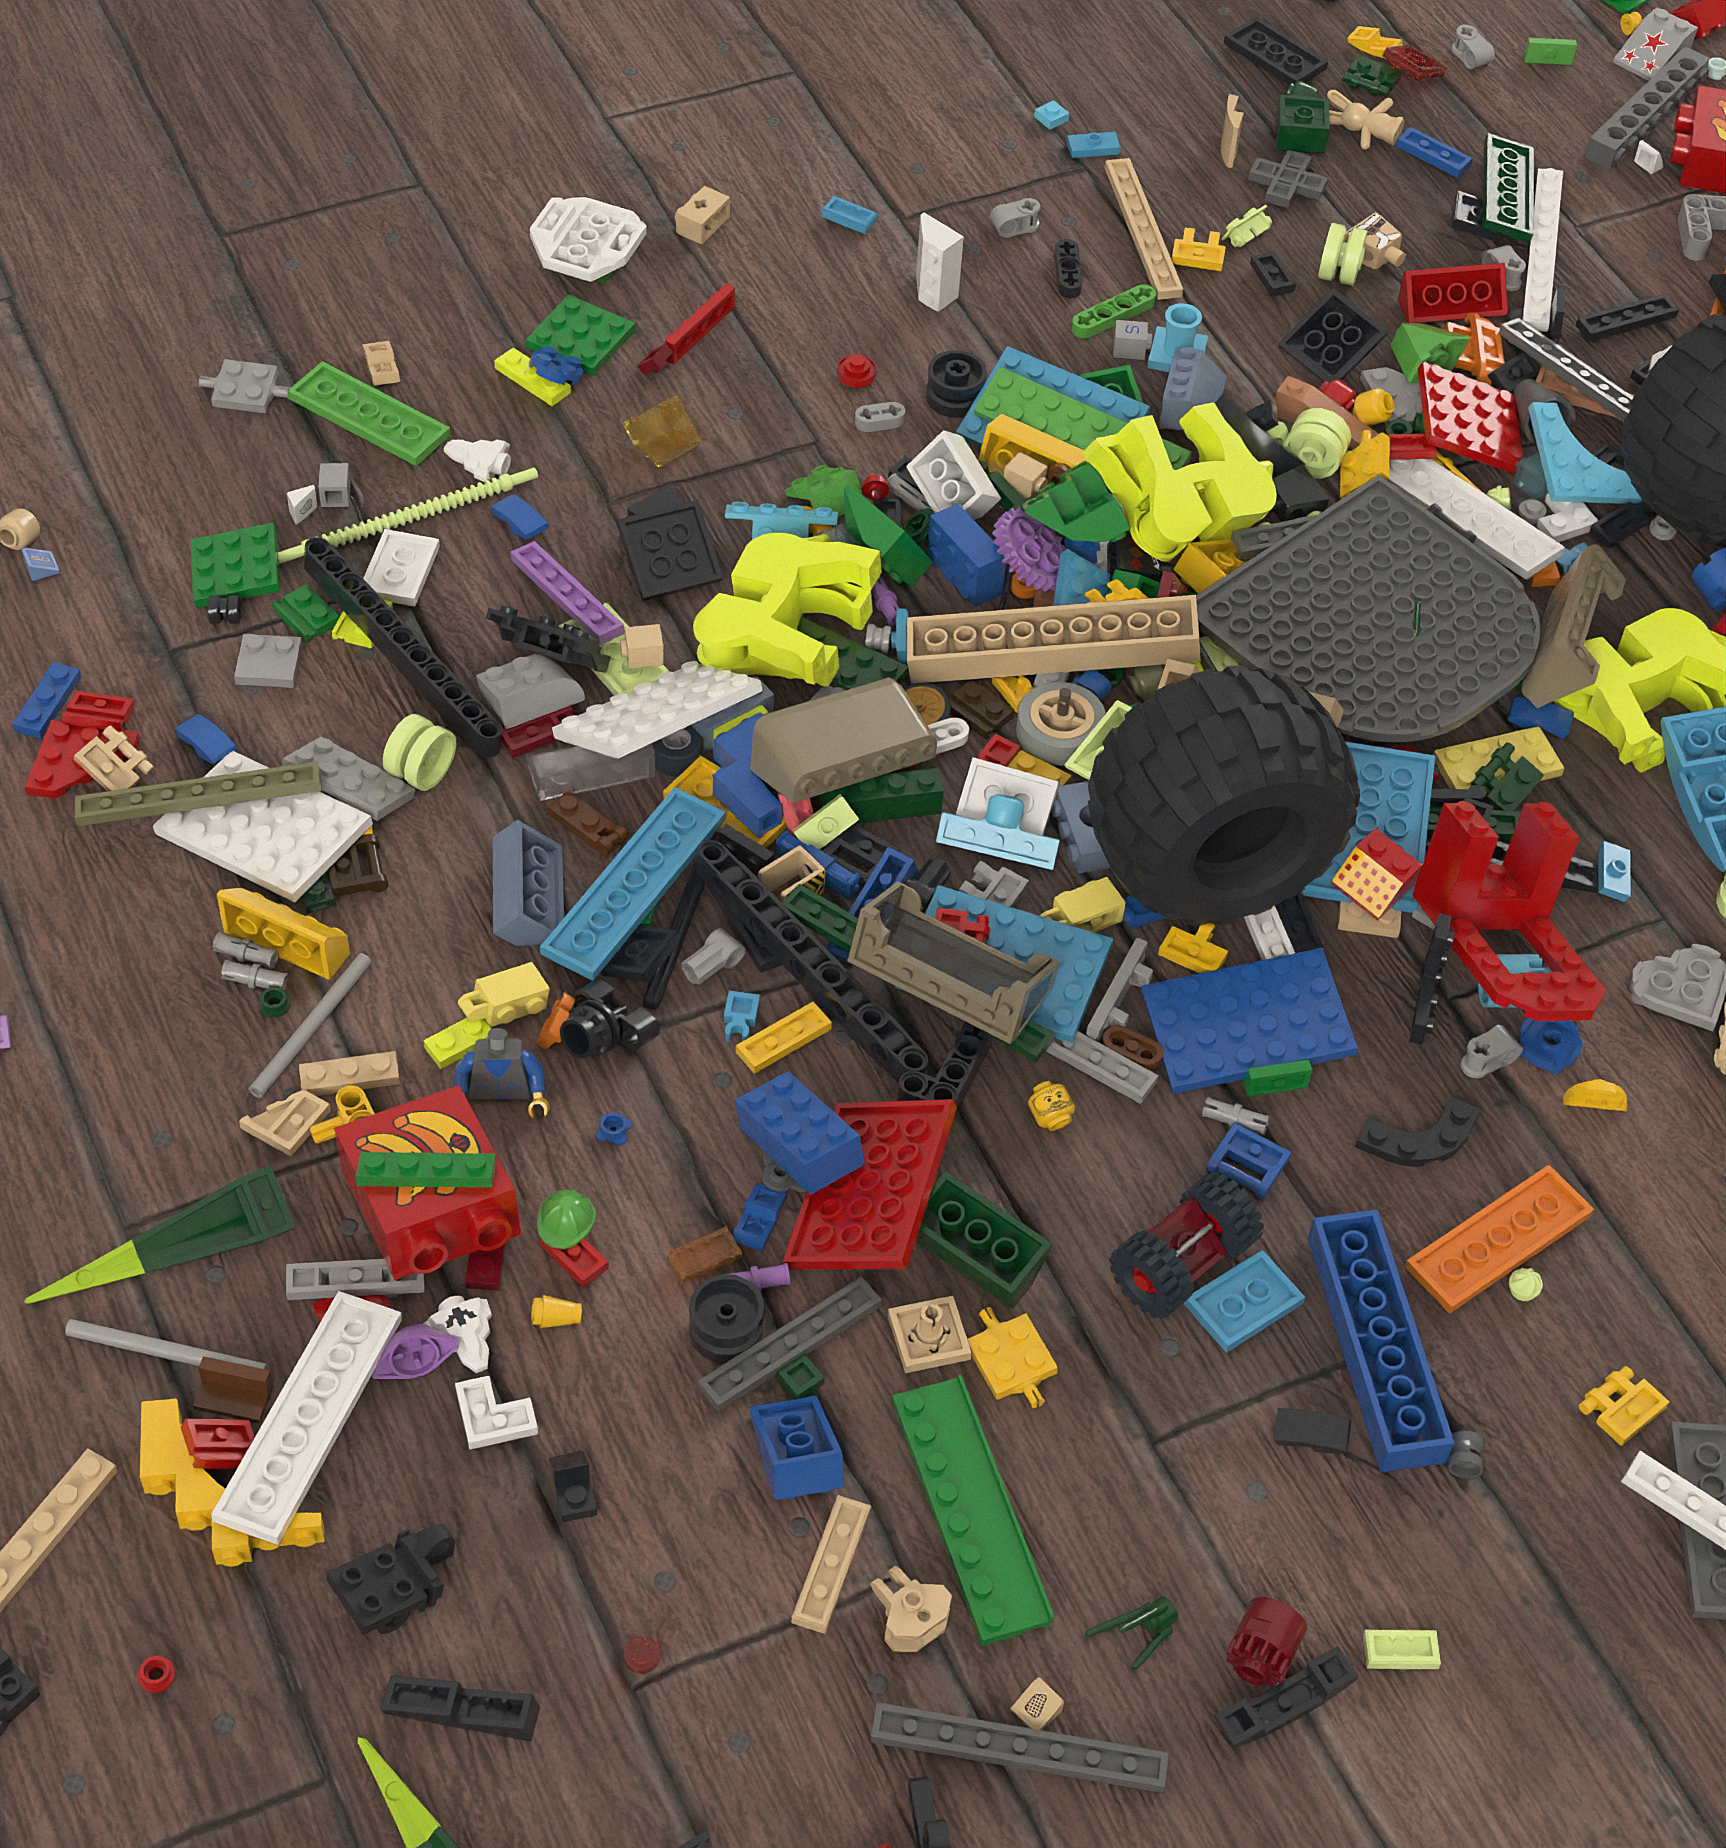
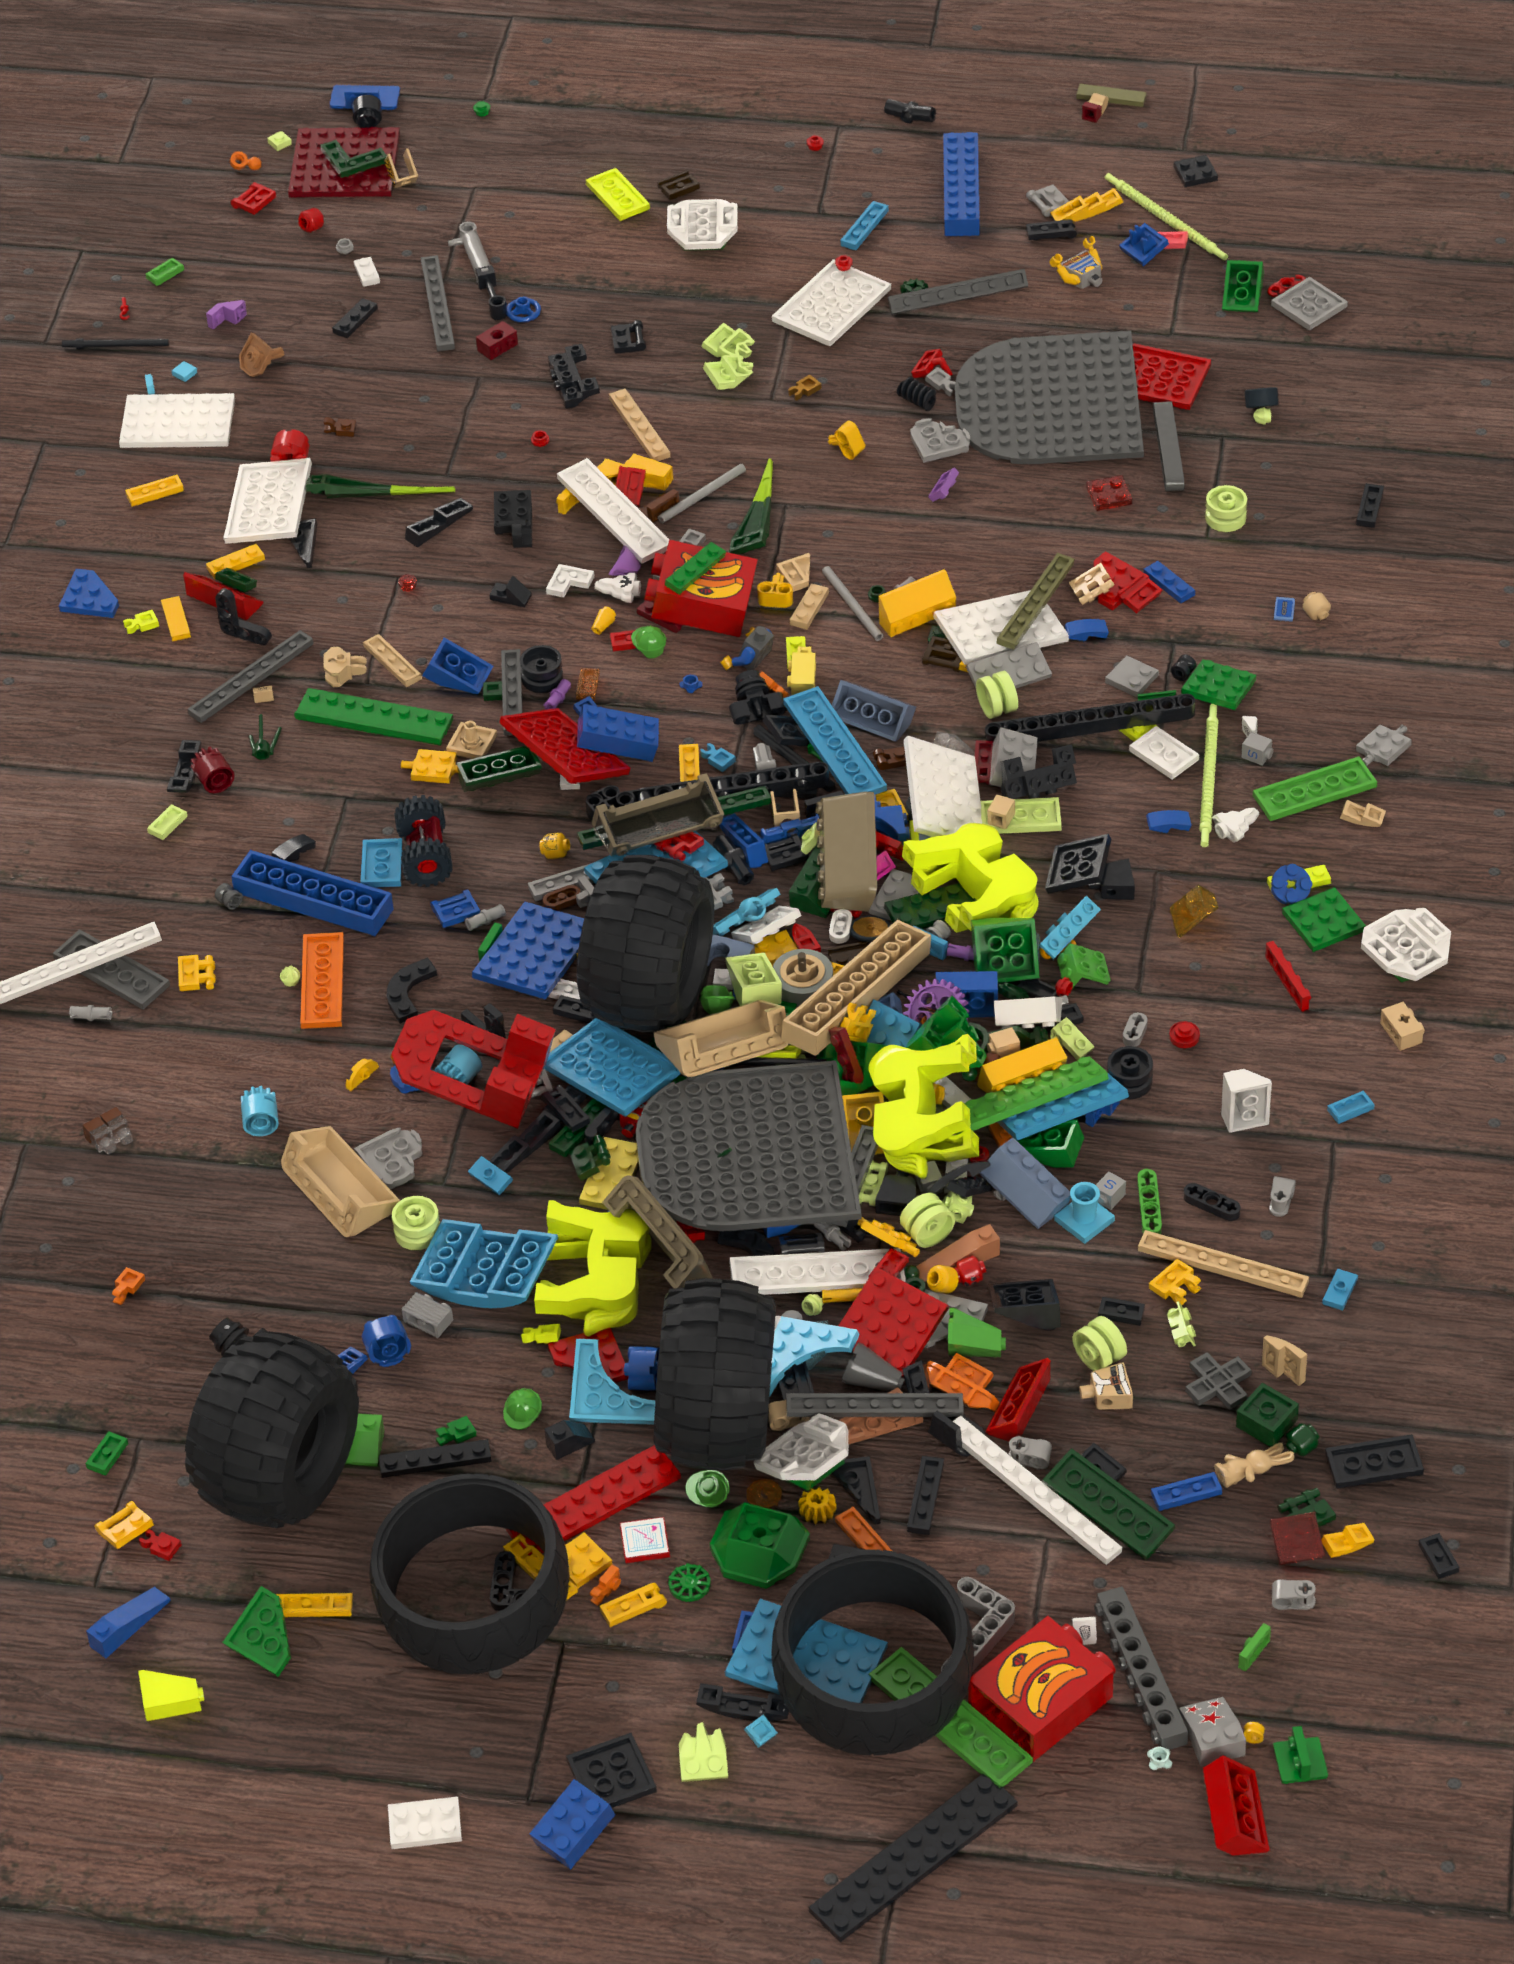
camera: 130 degrees right, 5 degrees down
(567, 593) = (1079, 806): medium lavender plate -> none
(655, 359) = (1266, 936): dark red plate -> none
(1051, 115) = (1392, 1283): medium azure plate -> none
(1377, 874) = (571, 1046): slope -> none

